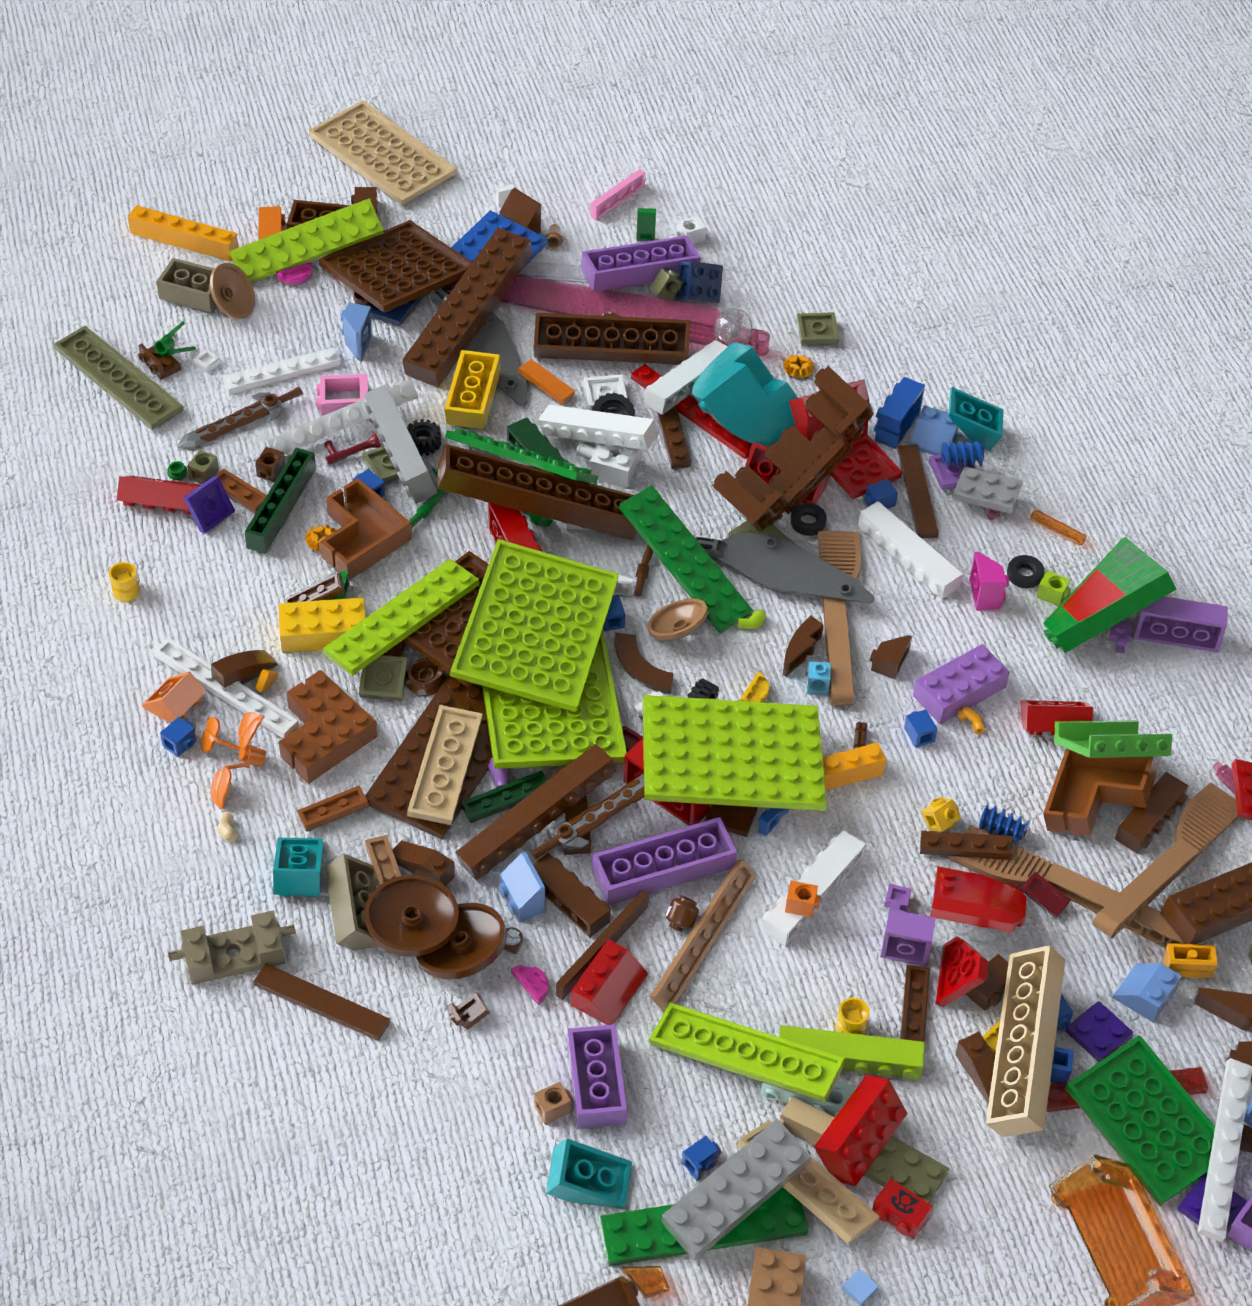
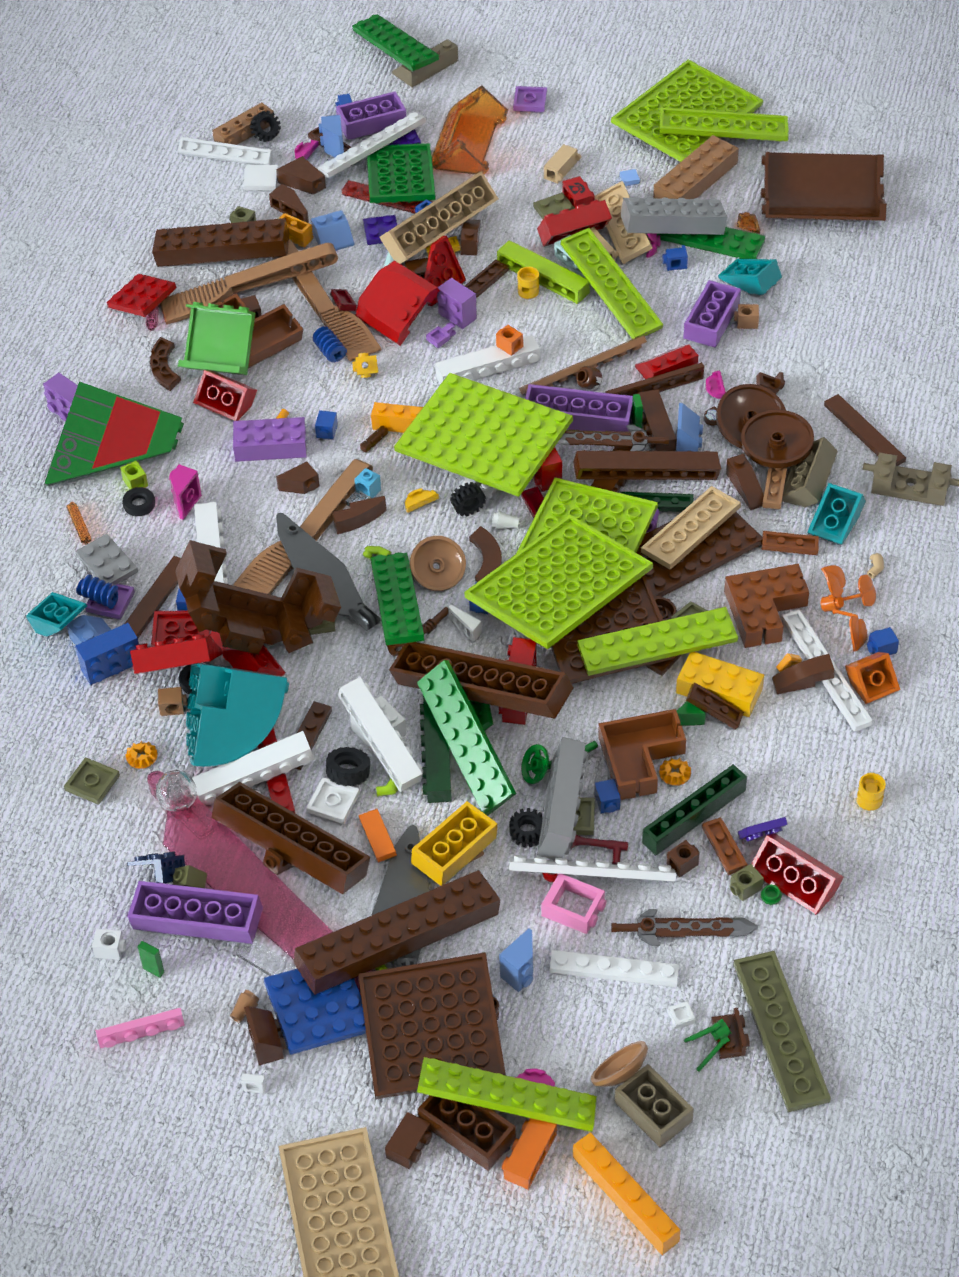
camera: 145 degrees left, 0 degrees up
(593, 878) = (637, 410): none -> green tile
(964, 1256) = (561, 163): none -> tan brick
(966, 845) = (366, 344): reddish brown plate -> none
(1155, 724) = (159, 364): none -> reddish brown tile

